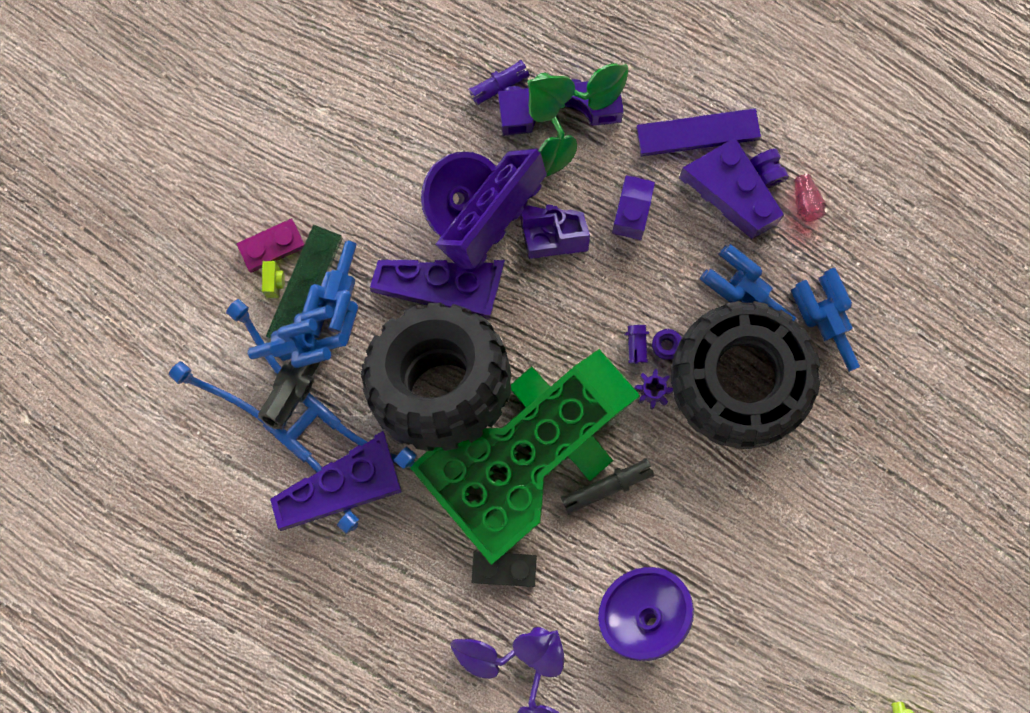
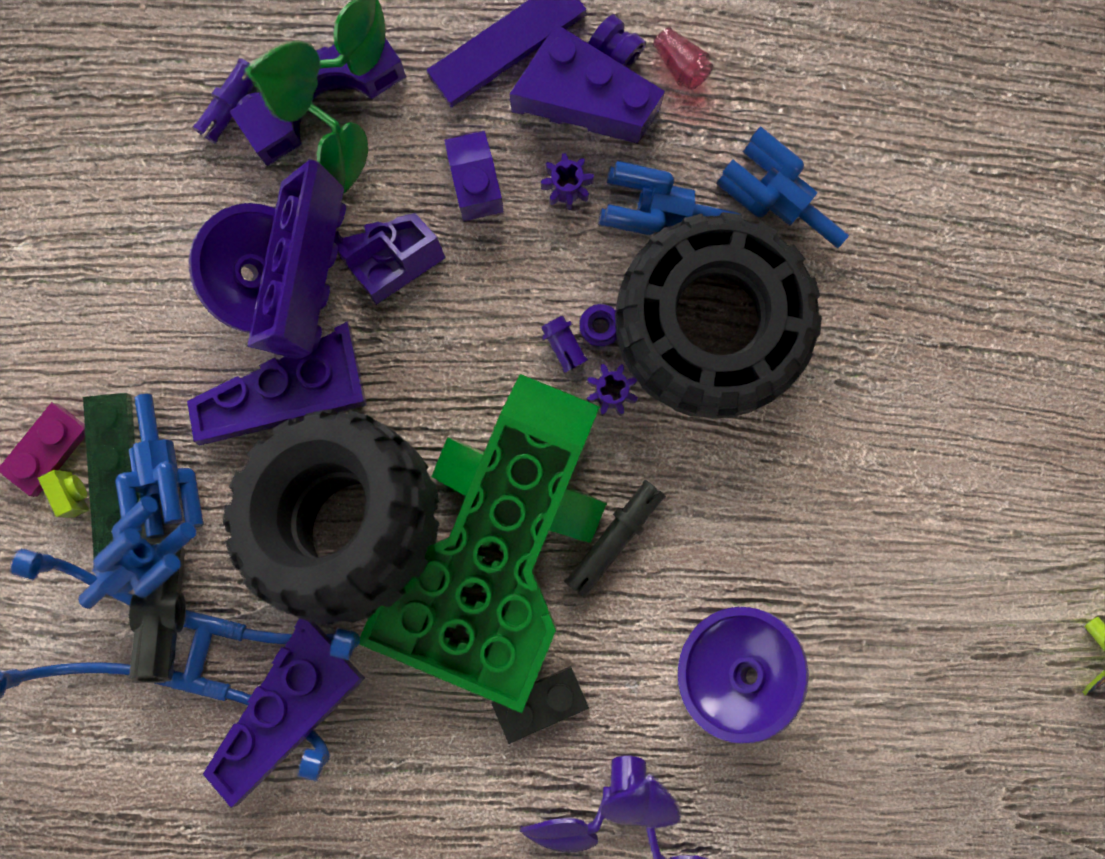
camera: 30 degrees left, 5 degrees up
(690, 249) = (565, 170): none -> dark purple gear

